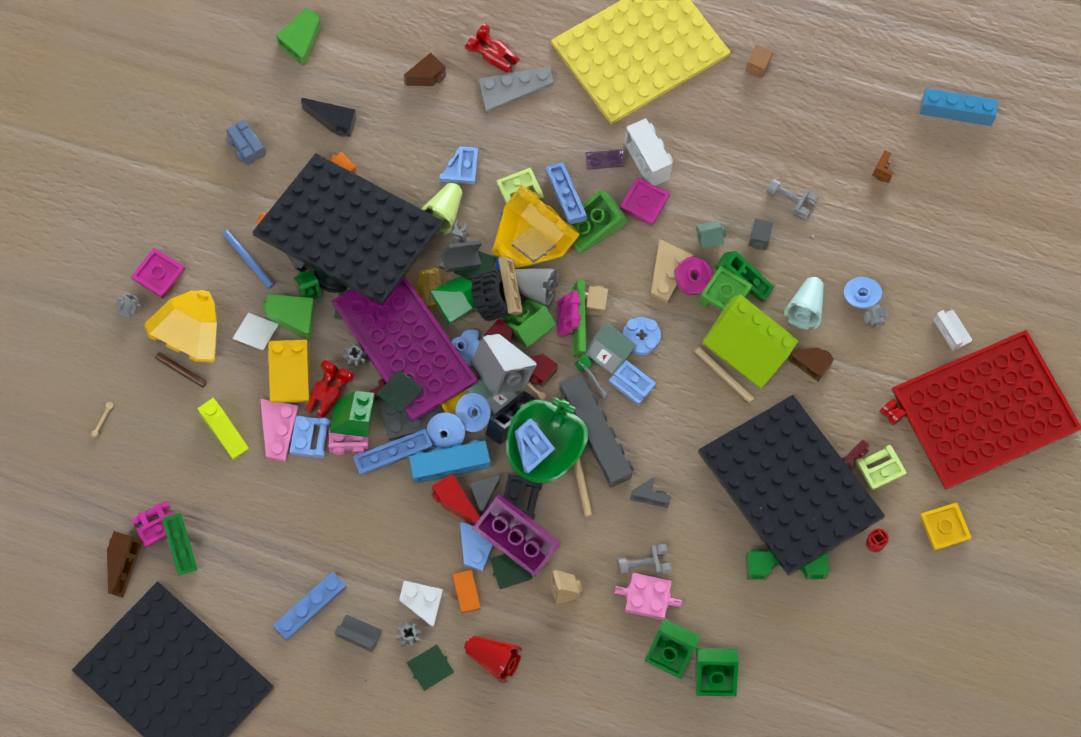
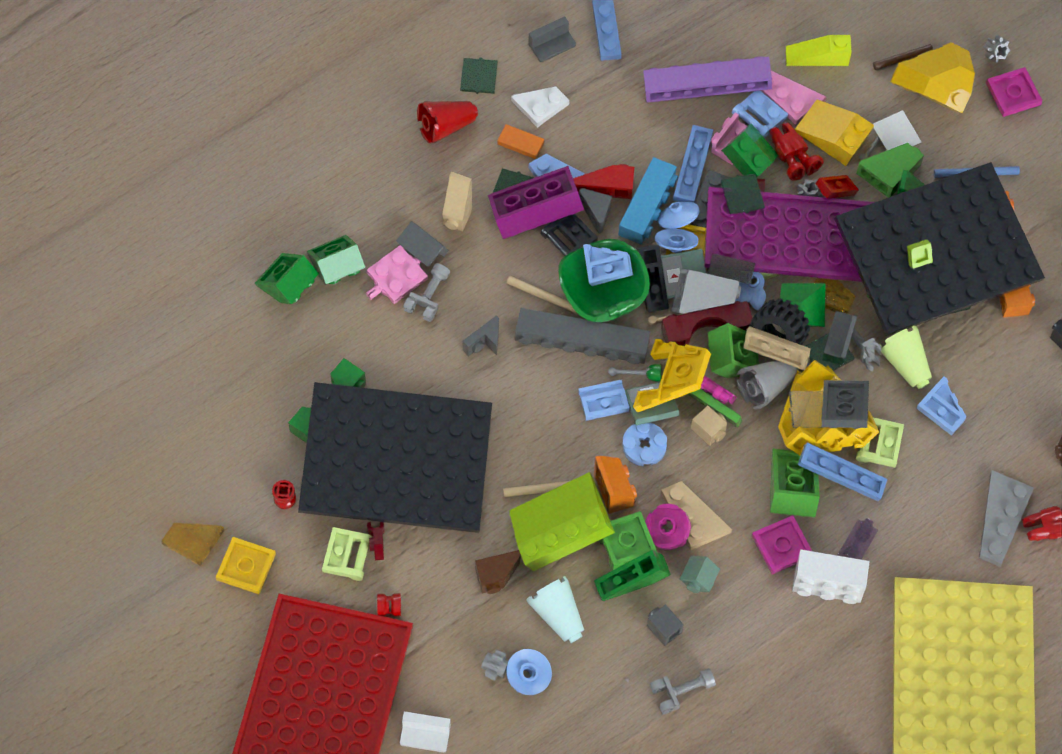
camera: 130 degrees right, 5 degrees down
(312, 488) = (708, 79): none -> medium lavender brick
(338, 337) = (836, 186): none -> red plate
(371, 228) = (919, 254): none -> lime plate
(410, 640) = (518, 73): light grey gear -> none
(468, 359) = (731, 268): none -> clear smoke tile
(521, 212) = (845, 404): none -> dark grey plate
(580, 331) = (681, 374): none -> yellow wing
(611, 594) = (421, 244): none -> dark grey panel
(691, 329) = (614, 483): none -> orange slope
(958, 578) = (192, 540): none -> clear yellow wing

